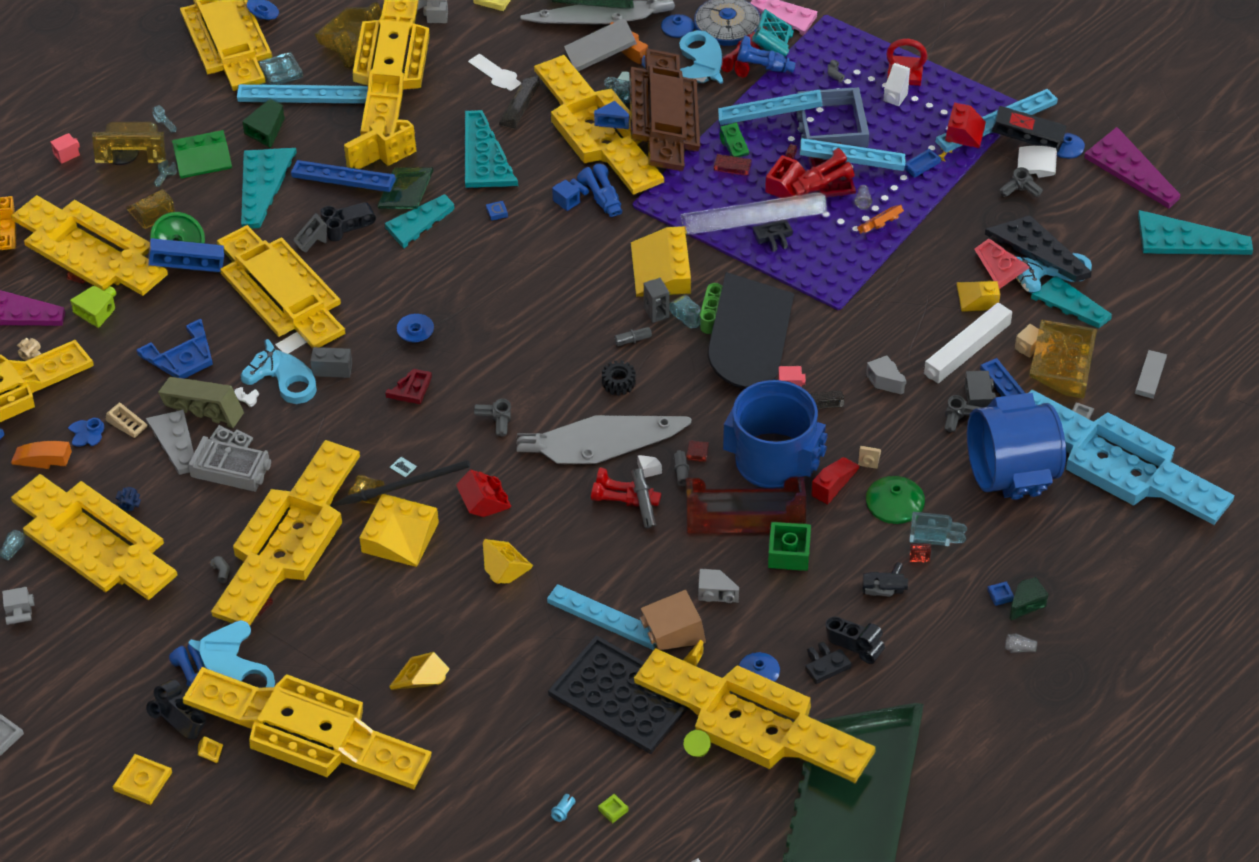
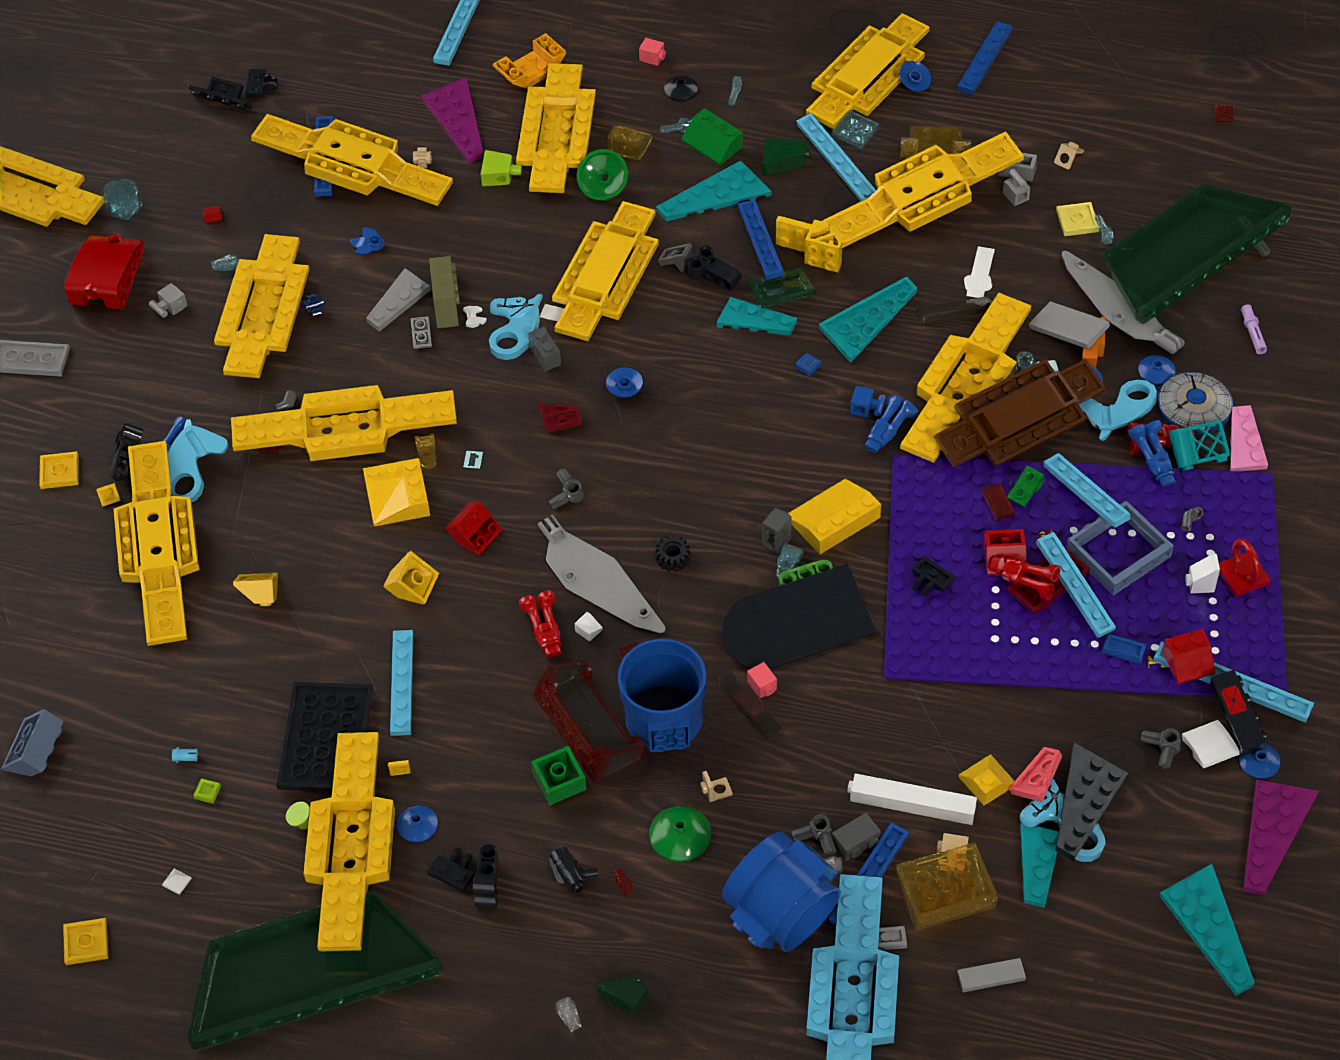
camera: 60 degrees right, 5 degrees up
(42, 454) = (324, 229): orange slope -> none
(119, 409) = (395, 246): tan slope -> none
(129, 137) = (689, 81): clear yellow windscreen -> none
(183, 359) = (486, 256): blue wing -> none
(186, 255) = (585, 190): blue brick -> none
(229, 464) = (392, 345): light grey door -> none
(373, 492) = (415, 451): black piece -> none
(611, 116) = (970, 377): blue slope -> none
(632, 336) = (730, 537): dark grey axle -> none
(641, 489) = (537, 641): dark grey pin -> none
(673, 622) = (414, 732): medium nougat slope -> none
(681, 467) = (601, 652): dark grey axle -> none
(717, 587) = (481, 743): light grey slope -> none
(754, 213) = (940, 548): clear brick -> none
(833, 479) = (668, 772): red slope -> none
(863, 198) = (1034, 623): clear cone -> none
(878, 220) = (1014, 650): orange plate -> none
(885, 375) = (822, 750): light grey slope -> none
(936, 529) = (654, 878): clear light blue hinge -> none
(1000, 593) = (622, 969): blue tile -> none

